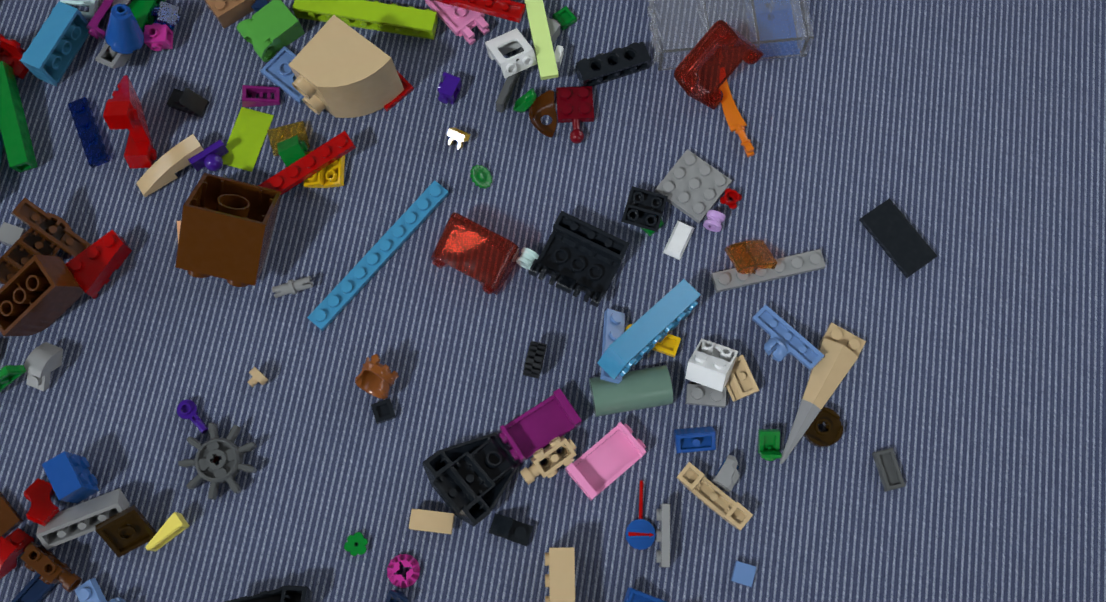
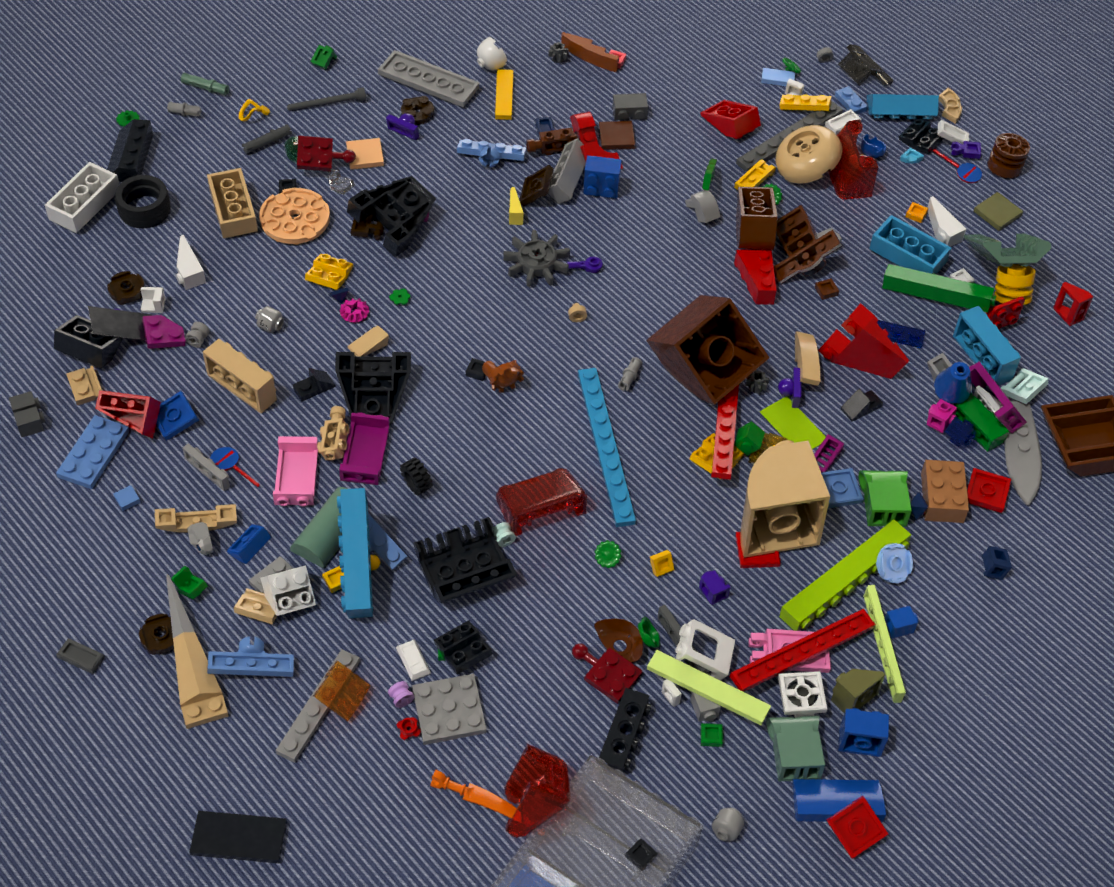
camera: 130 degrees right, 20 degrees down
(72, 205) = (826, 289): none -> reddish brown tile

